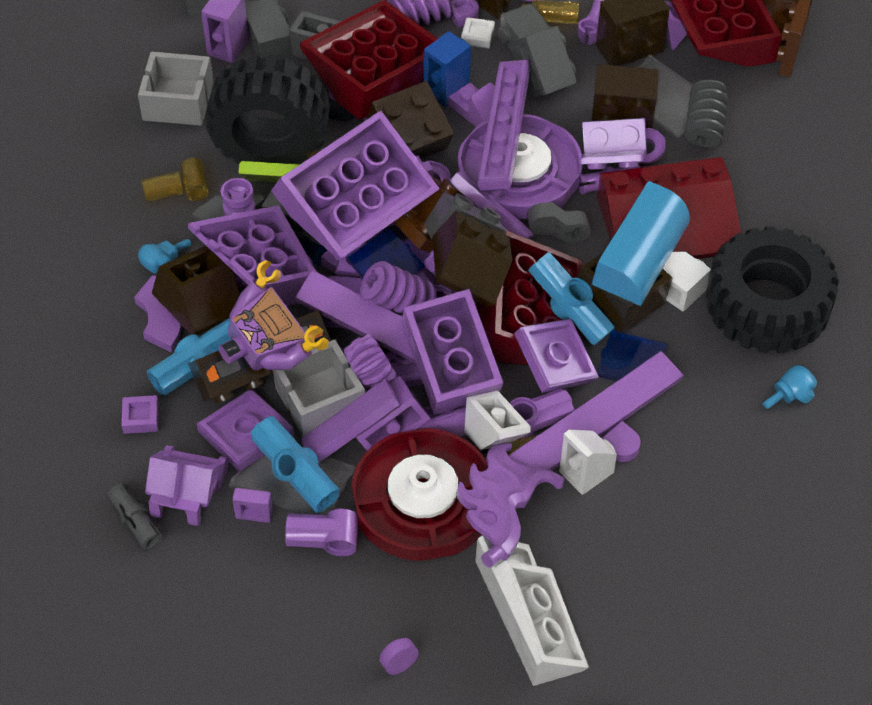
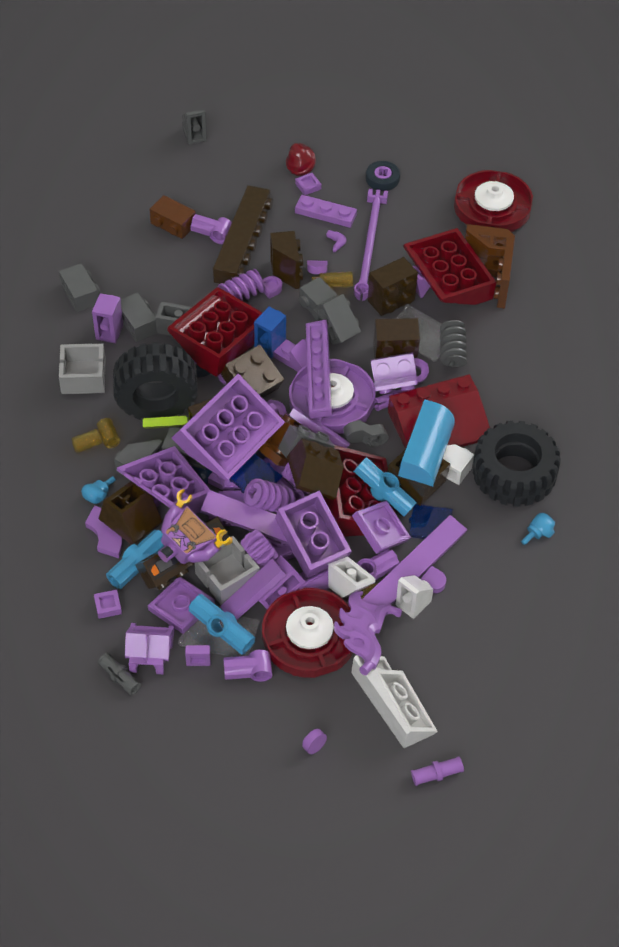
camera: 10 degrees left, 0 degrees up
(237, 196) = (145, 444): medium lavender wheel -> none
(478, 32) = (284, 301): white tile -> none

